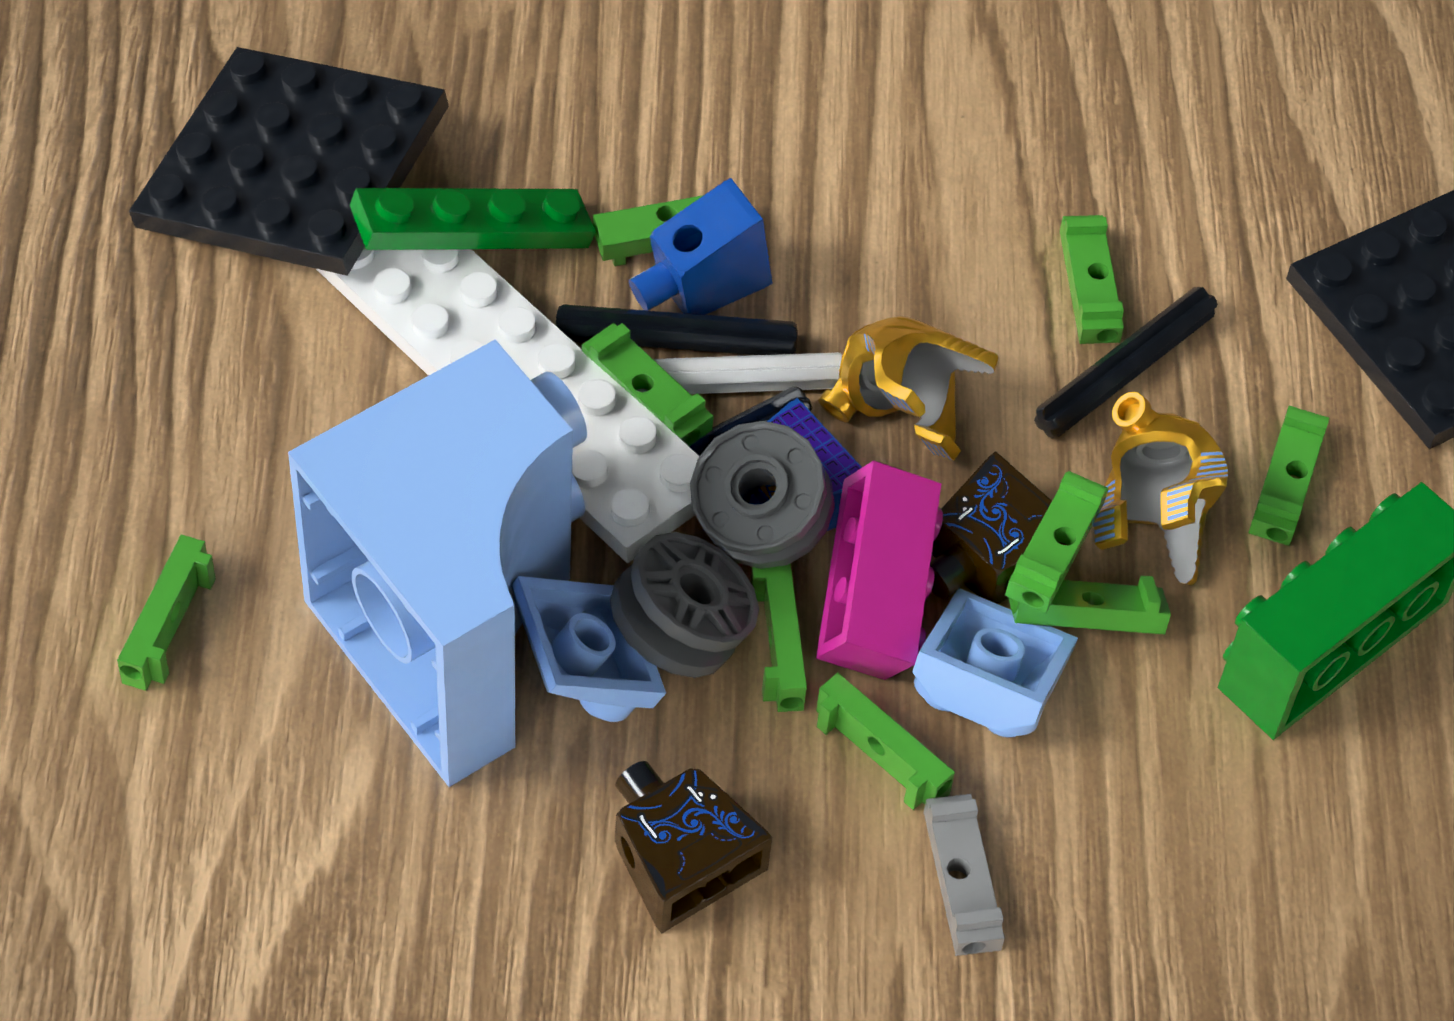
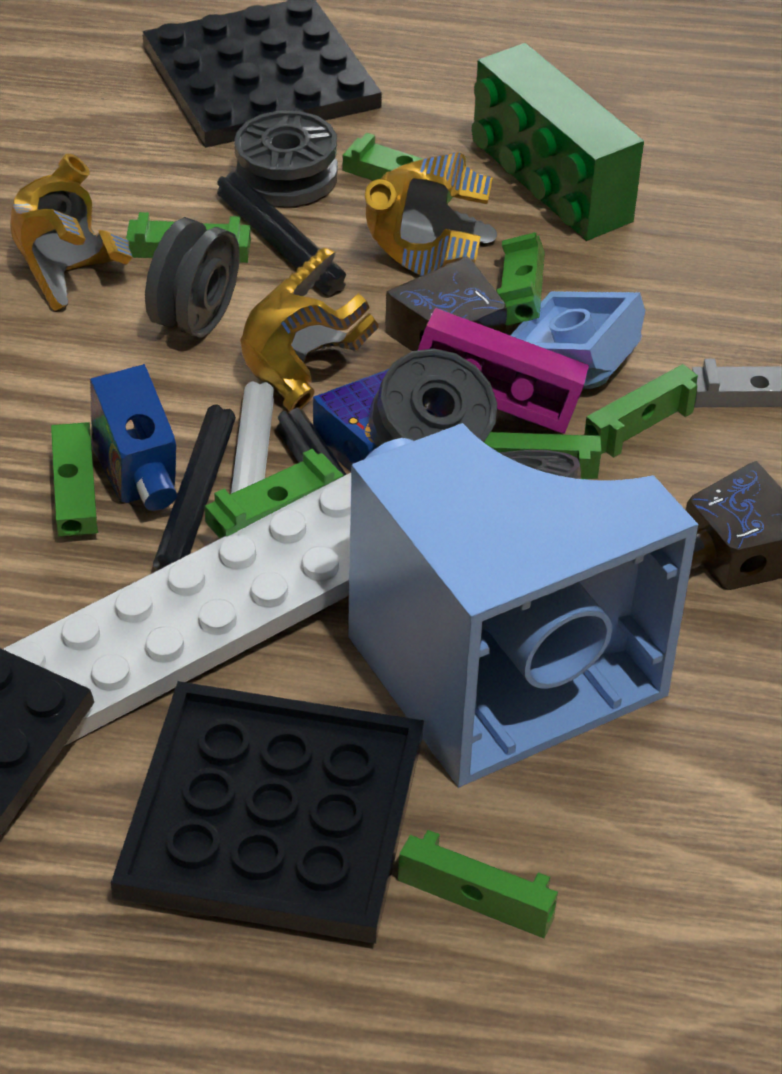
camera: 80 degrees left, 10 degrees down
(214, 425) = (271, 812): none -> black plate
(471, 218) = (50, 599): green plate -> none
(973, 267) = (192, 277): none -> dark grey wheel
(1043, 139) = (55, 232): none -> piece
(1046, 561) = (489, 263): bright green piece -> none
(1258, 347) = (288, 156): none -> dark grey wheel

